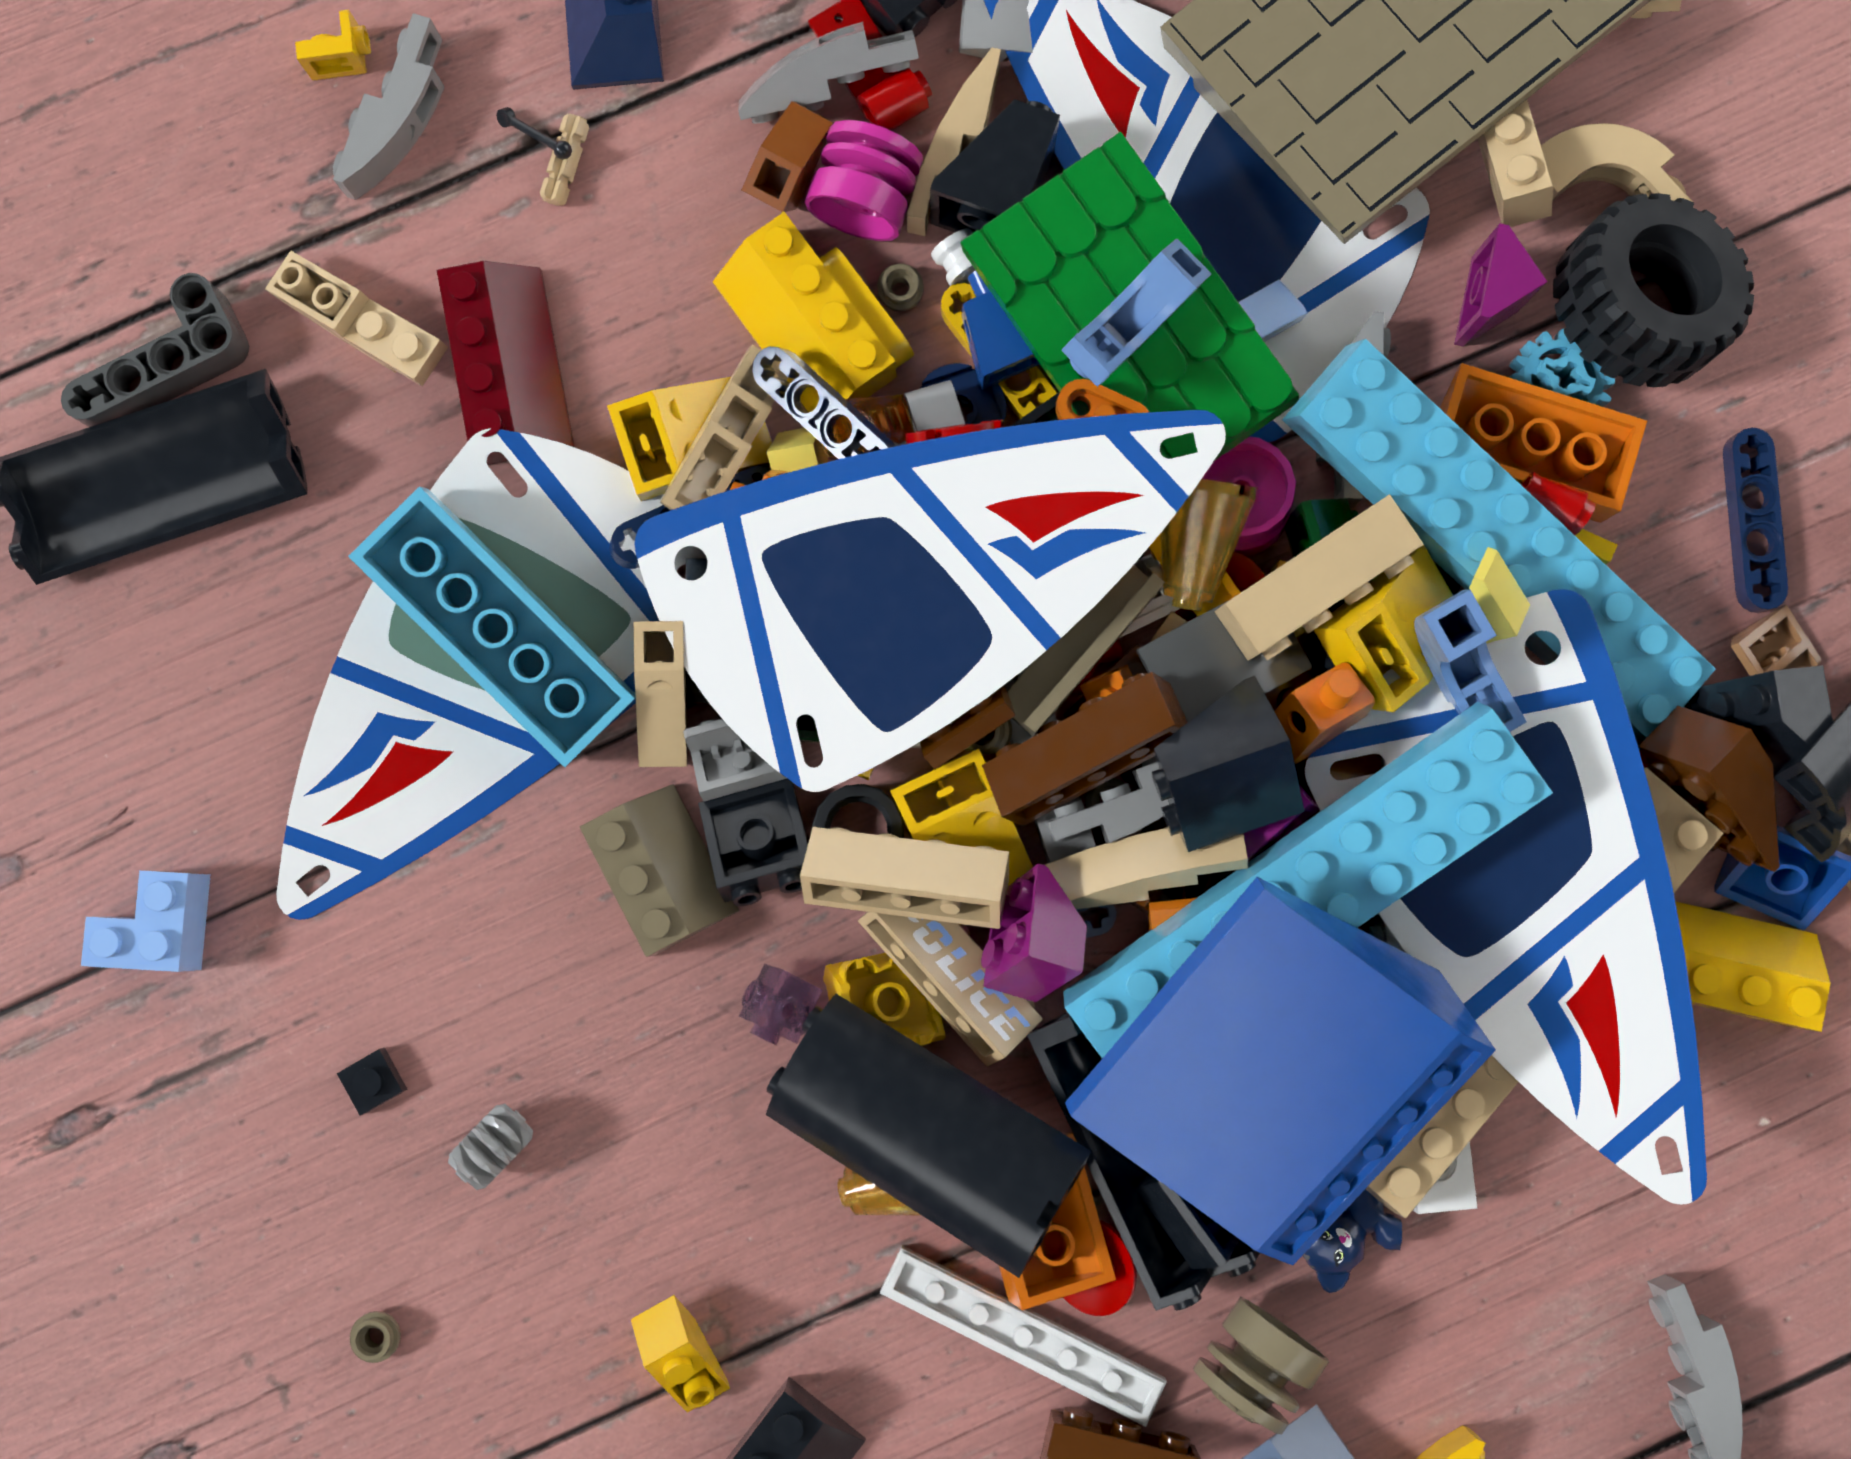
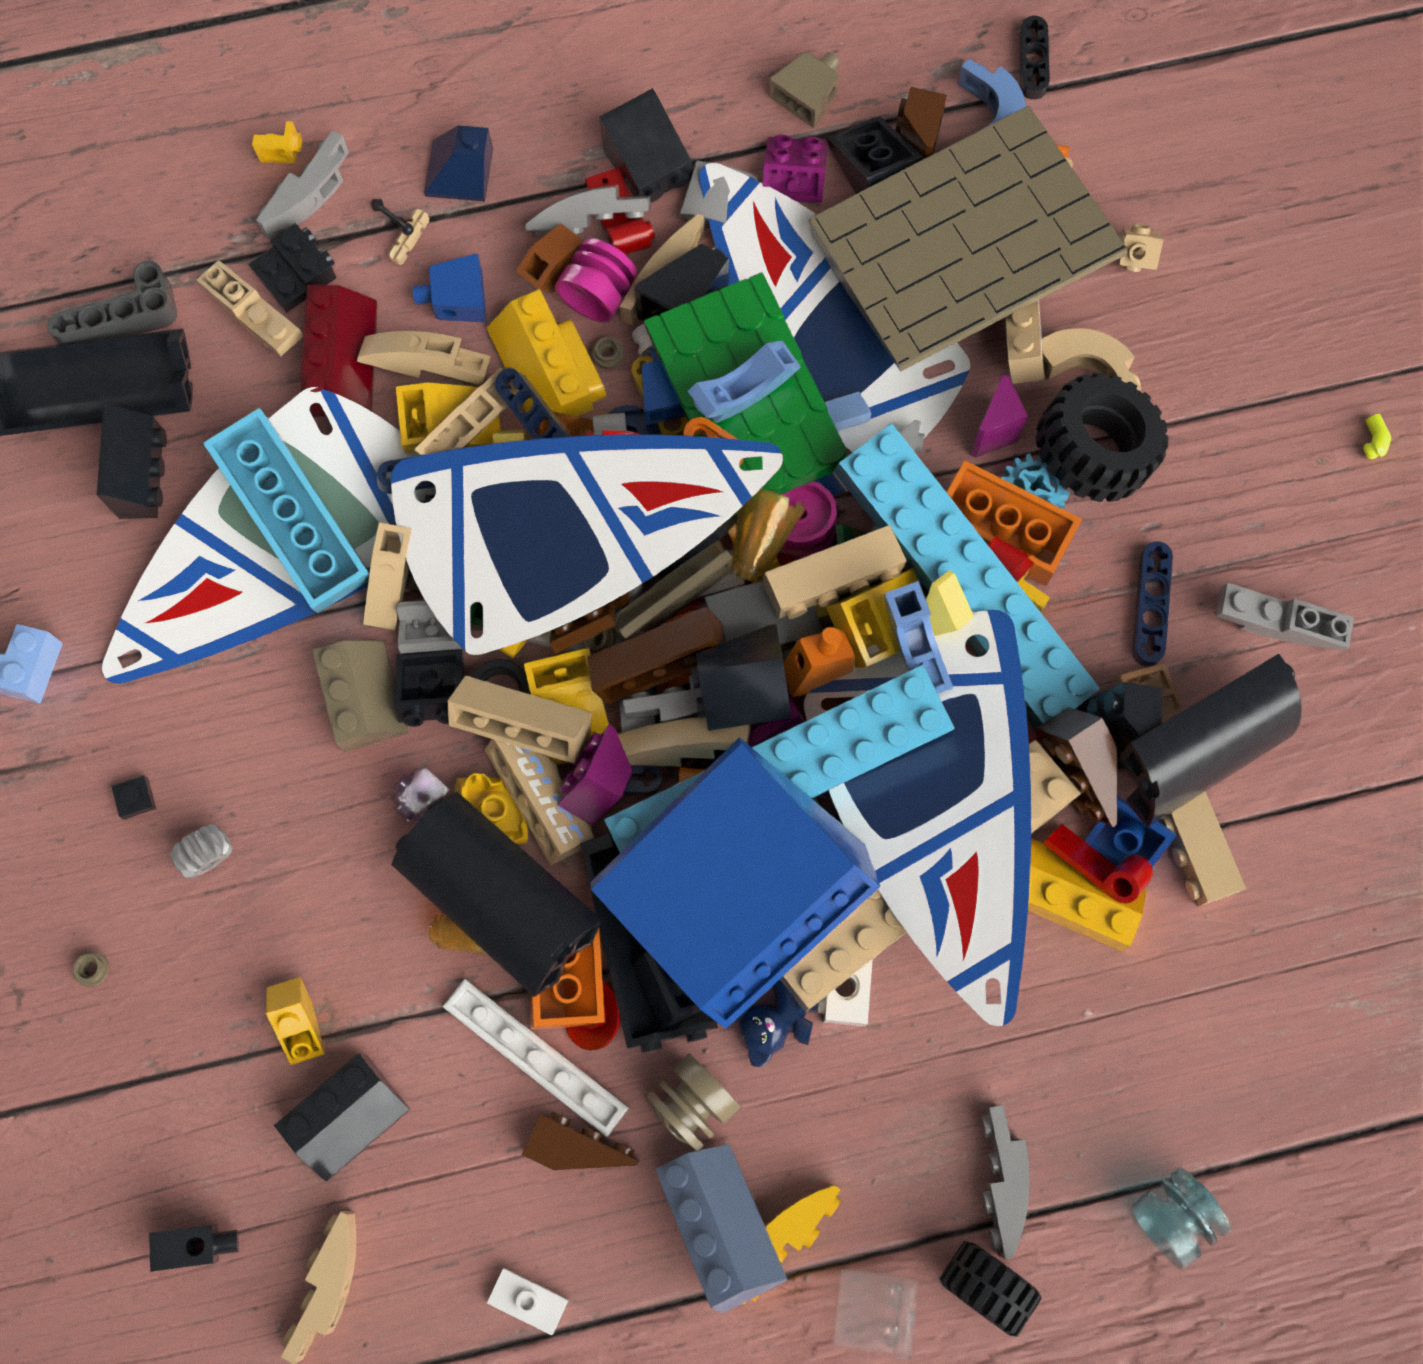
camera: 10 degrees right, 10 degrees down
(242, 592) = (131, 463): none -> black slope
(405, 239) = (292, 266): none -> black plate
(628, 339) = (417, 351): none -> tan slope
(654, 232) = (455, 290): none -> blue torso
(1790, 936) = (1120, 882): none -> red door

